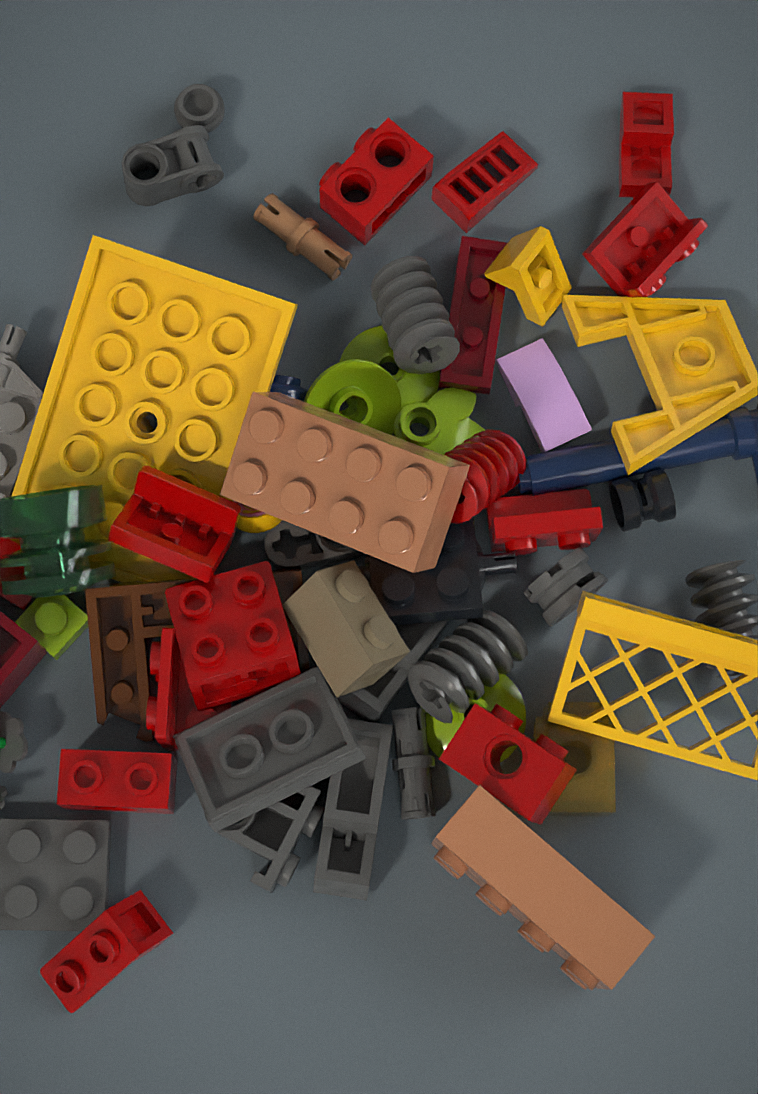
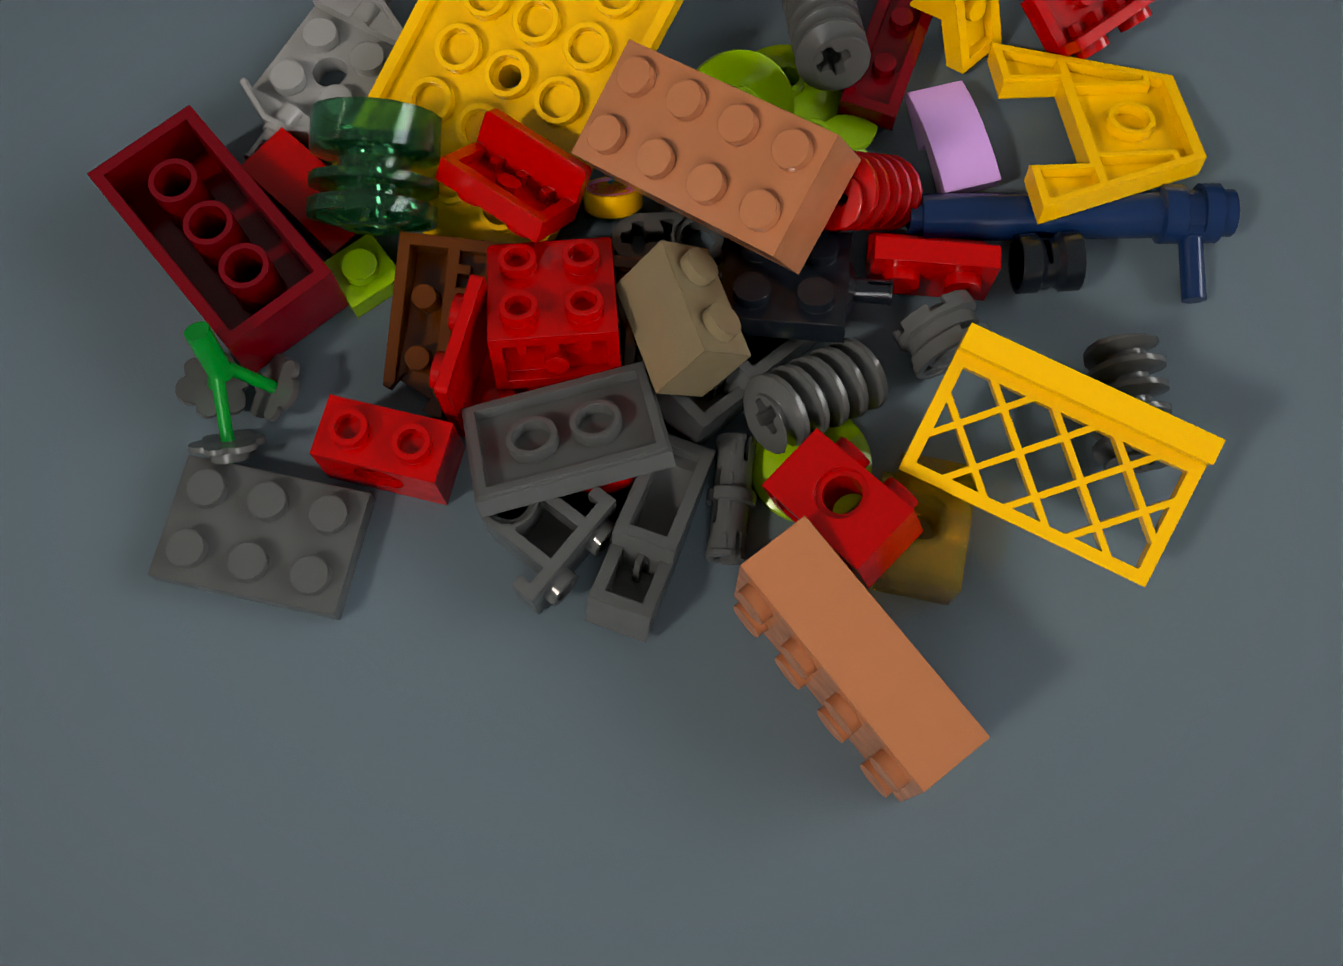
camera: 15 degrees right, 5 degrees down
(105, 950) = (326, 631): red bracket -> none

